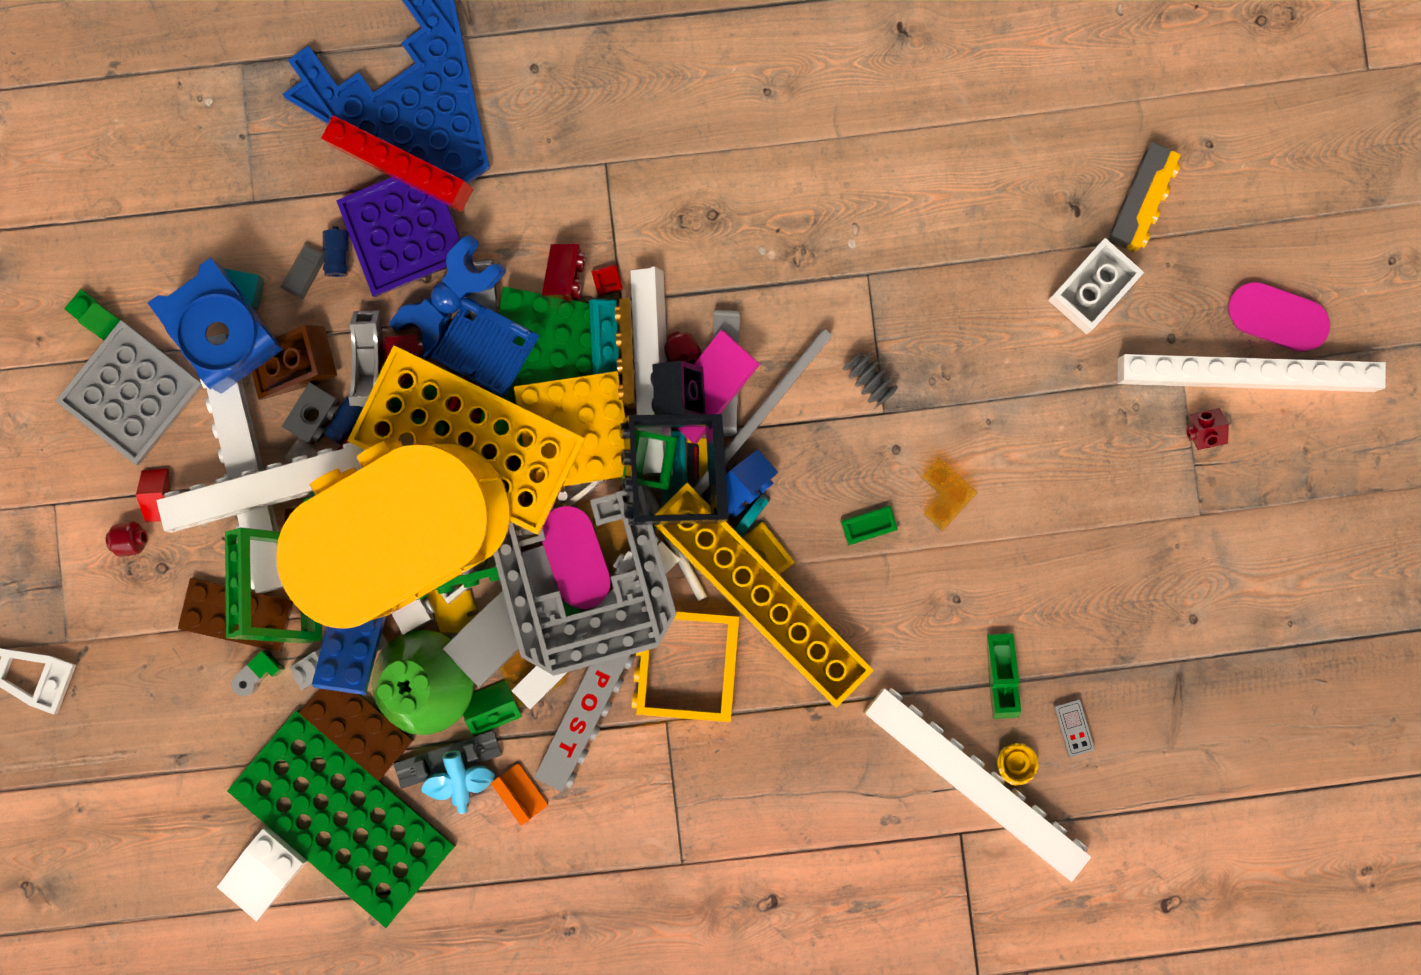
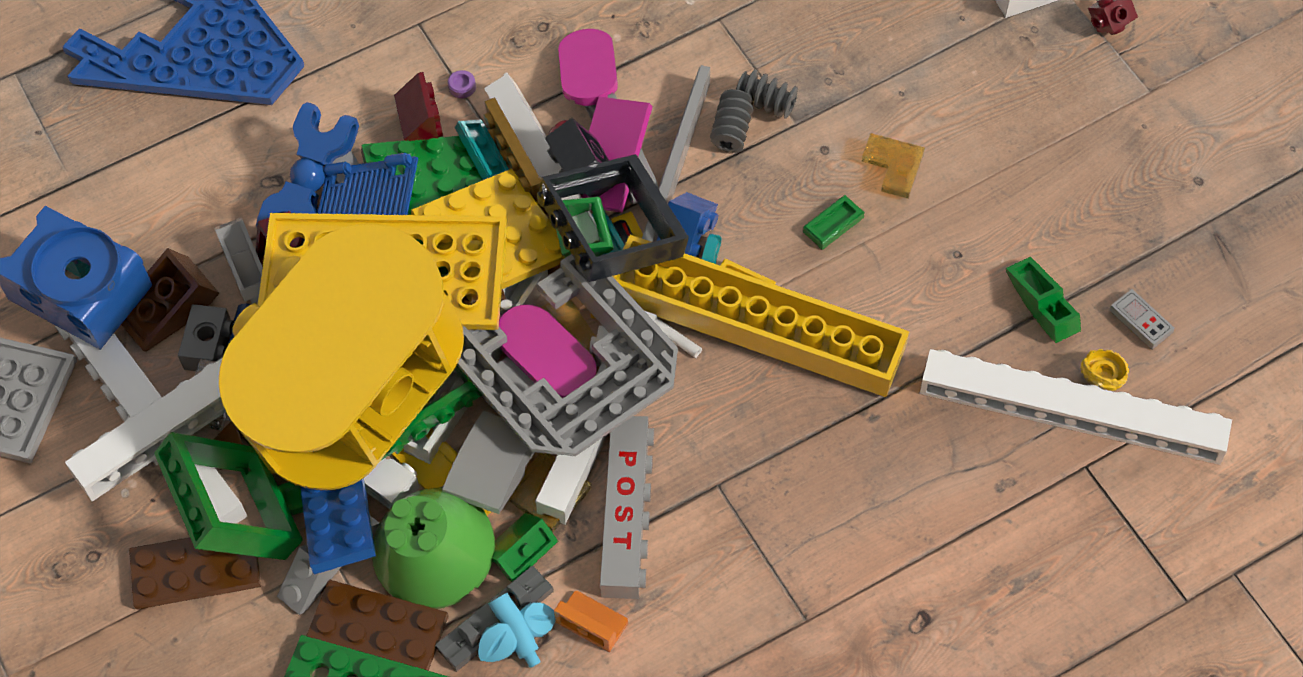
camera: 20 degrees left, 25 degrees down
(126, 539) = (42, 535): dark red head -> none
(152, 487) = (61, 486): red slope -> none
(249, 678) = (239, 614): leg -> none
(303, 271) = (147, 220): dark grey tile -> none
(335, 252) = (175, 188): dark blue piece -> none
(397, 163) = (209, 75): red brick -> none
(398, 233) = (234, 141): dark purple plate -> none
(607, 280) = (463, 110): red tile -> none
(617, 247) = (461, 84): none -> medium lavender tile
(641, 675) = (733, 463): yellow window -> none
(729, 284) = (587, 66): none -> dark pink tile
(826, 394) = (732, 121): none -> dark grey piece

